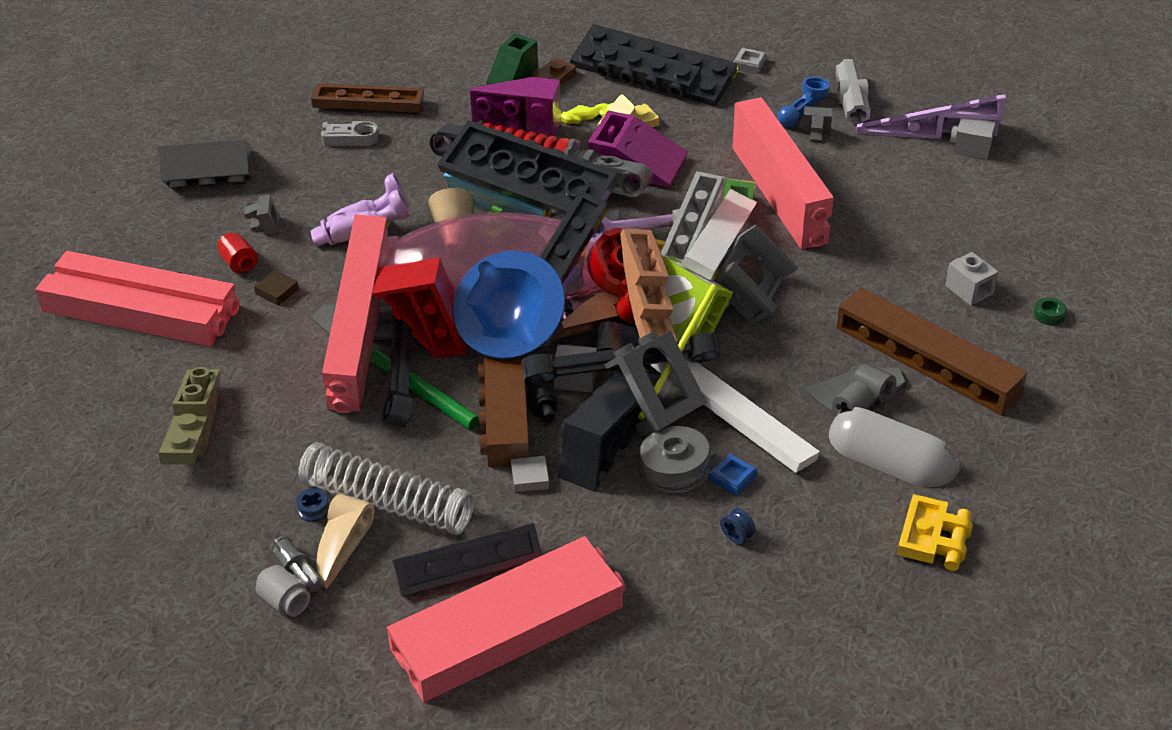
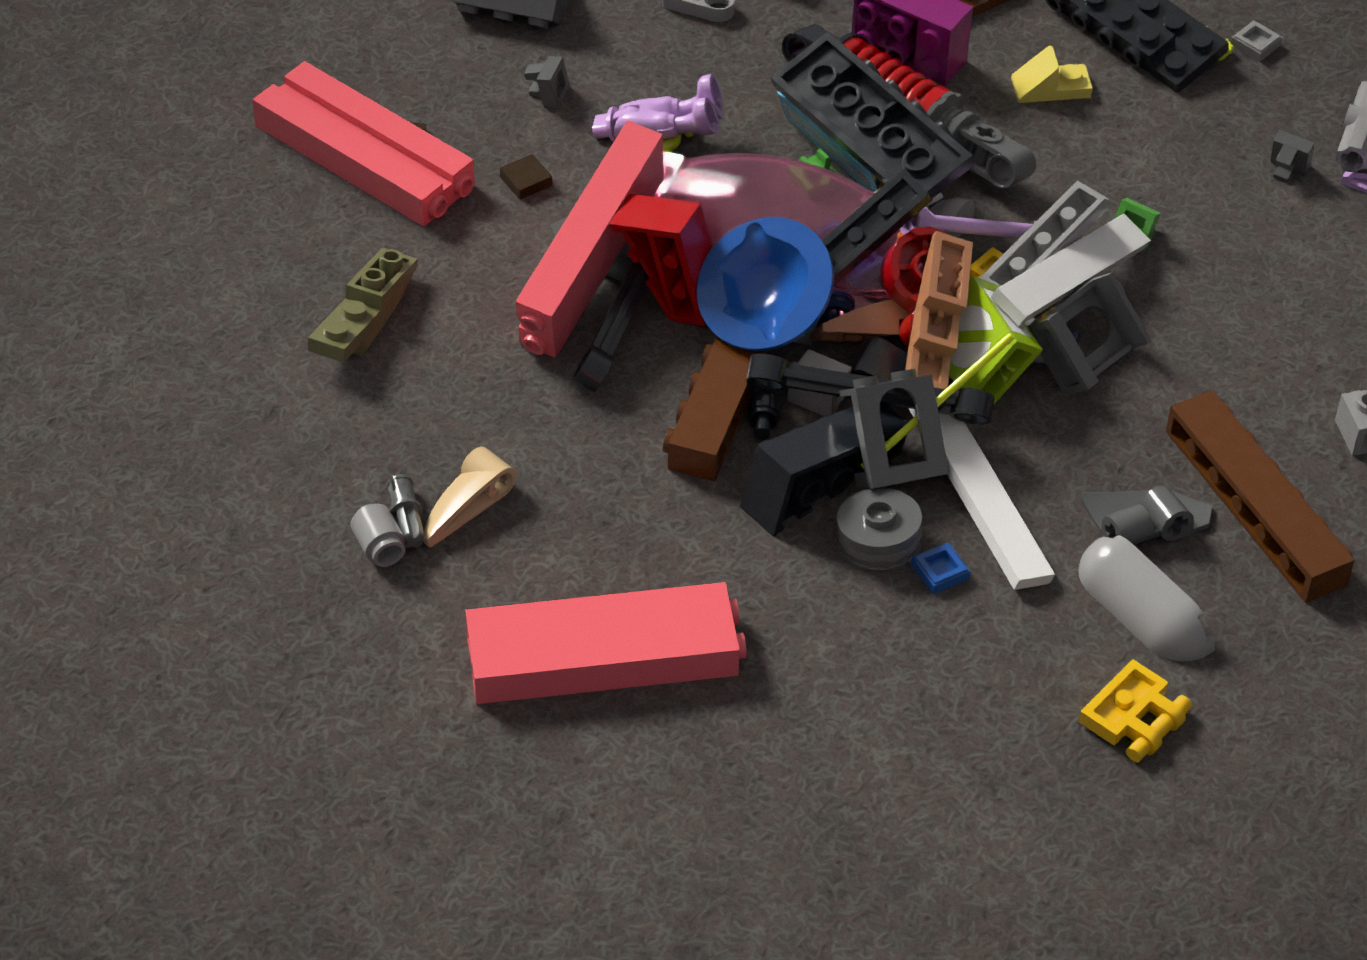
camera: 20 degrees right, 5 degrees up
(237, 253) = (498, 119): red brick -> none
(311, 497) = (455, 440): dark blue bush -> none
(429, 393) = (640, 359): green piece -> none
(450, 511) = (483, 413): white piece -> none
(451, 204) = (771, 135): tan hat -> none
(466, 559) = (589, 565): black plate -> none
(529, 474) = (708, 492): light grey tile -> none
(584, 113) = (1004, 55): neon yellow animal -> none
(637, 142) = (1040, 118): magenta slope -> none
(738, 526) = (910, 628): dark blue bush -> none
(782, 173) = (1198, 211): coral brick -> none
(814, 91) = (1314, 107): blue piece -> none

